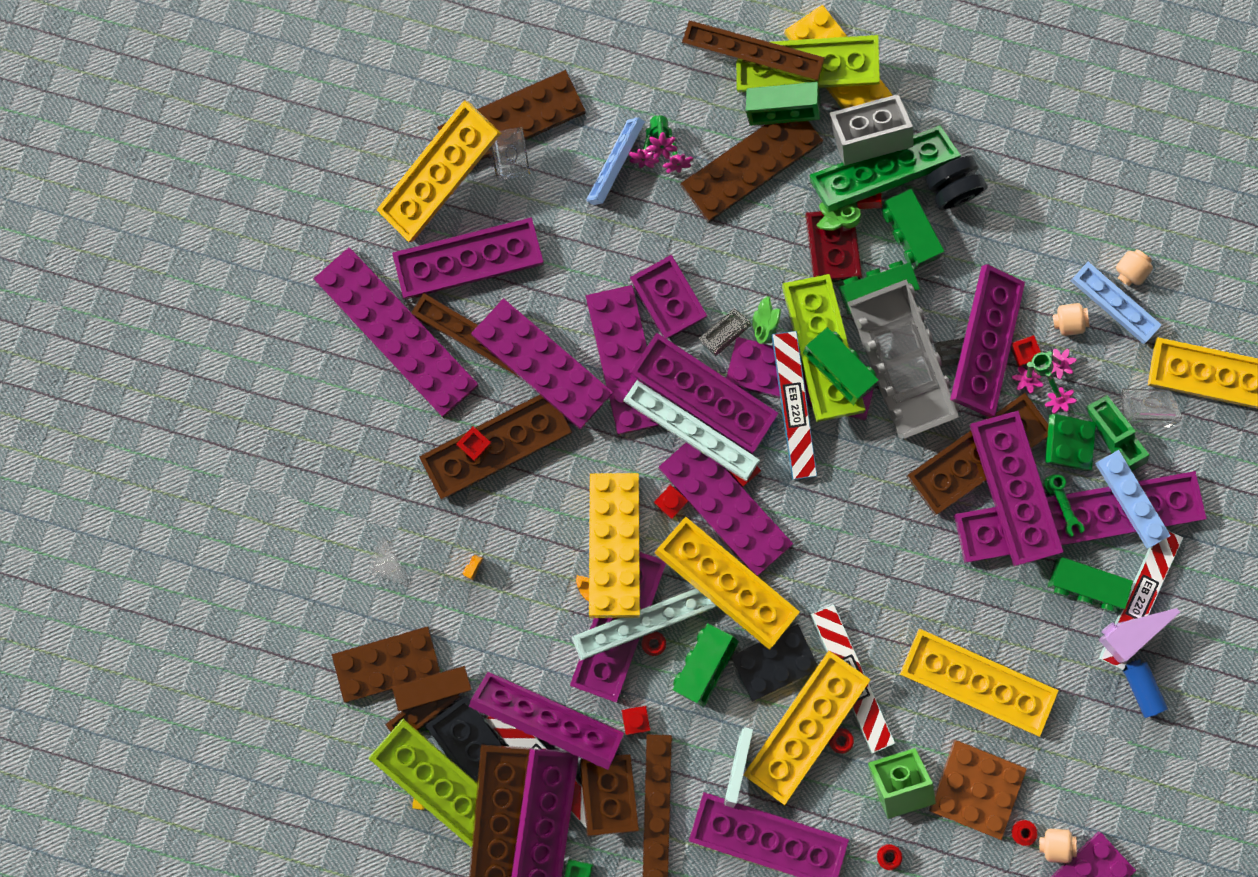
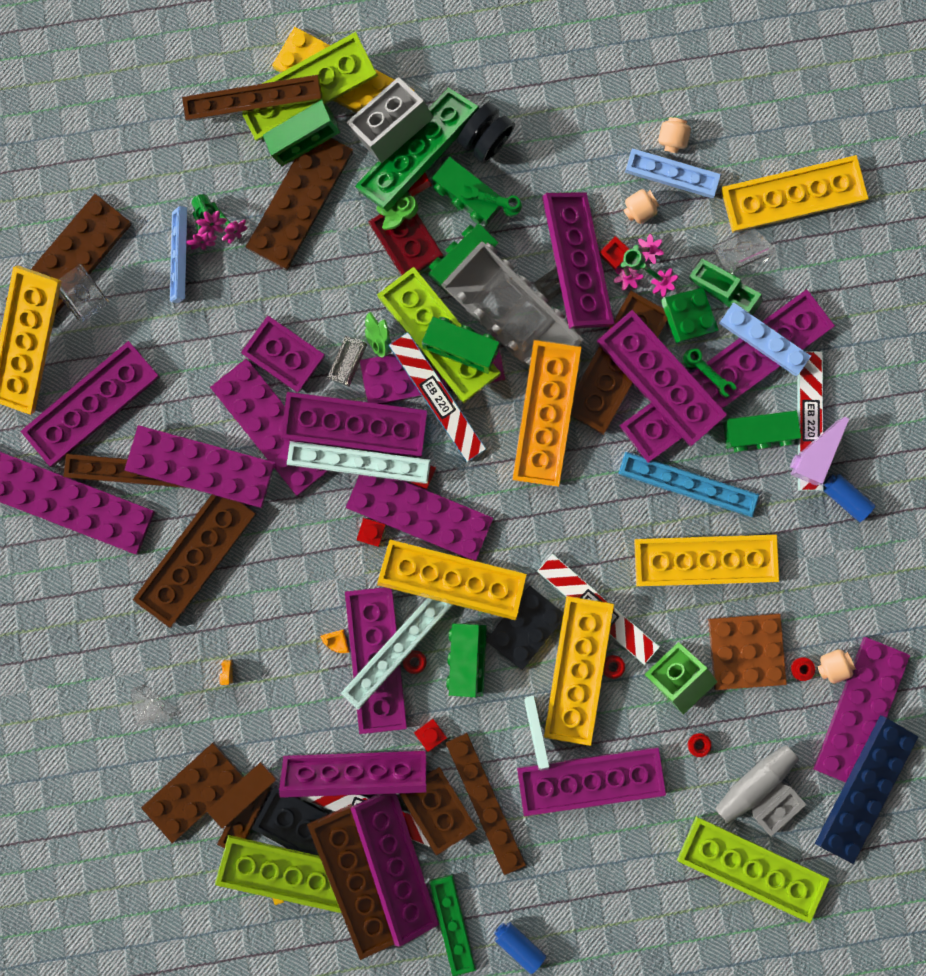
camera: 25 degrees left, 5 degrees up
(474, 443) = (174, 566): red plate -> none
(614, 546) = (339, 595): yellow plate -> none
(891, 468) = (546, 412): none -> light orange plate
(943, 262) = (494, 199): none -> green brick
(995, 602) = (688, 484): none -> dark azure tile

